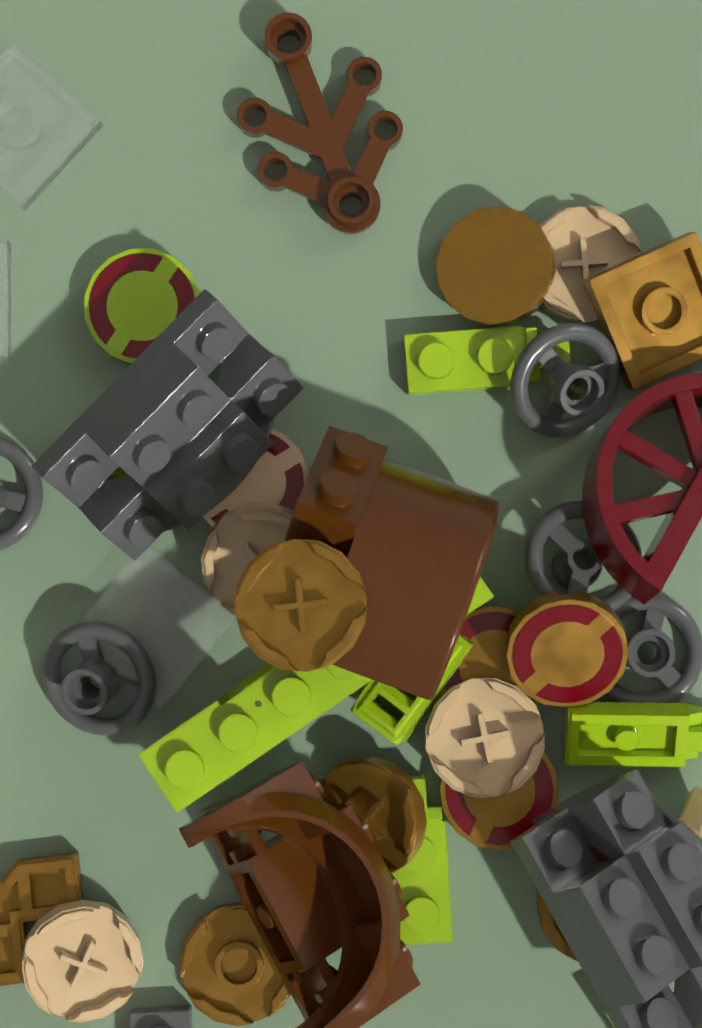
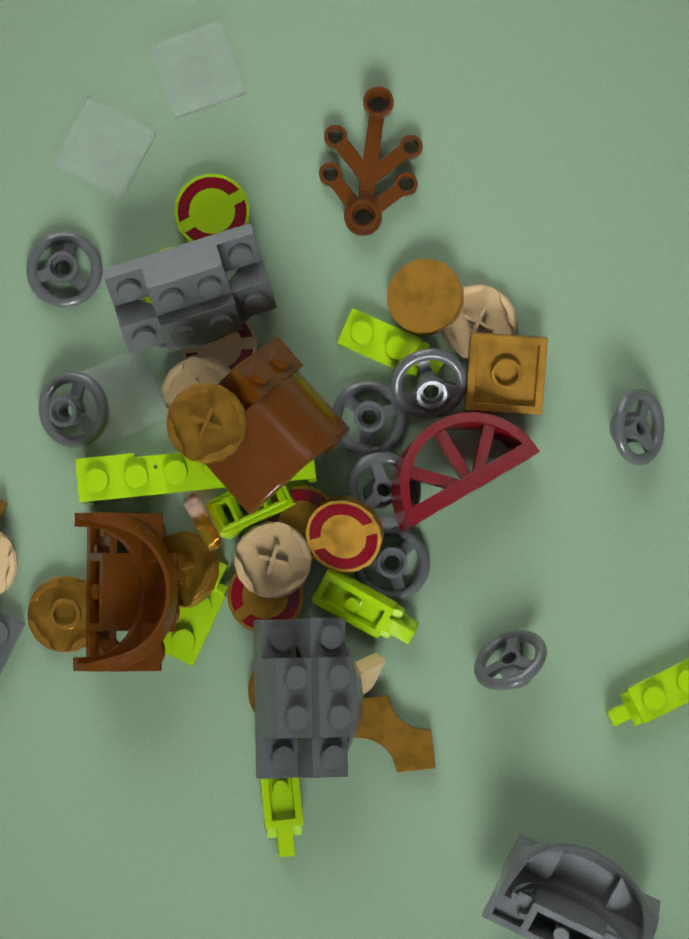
camera: 30 degrees right, 0 degrees up
(361, 739) = (202, 521): none -> clear orange tile
(521, 514) = (347, 399): none -> dark grey piece

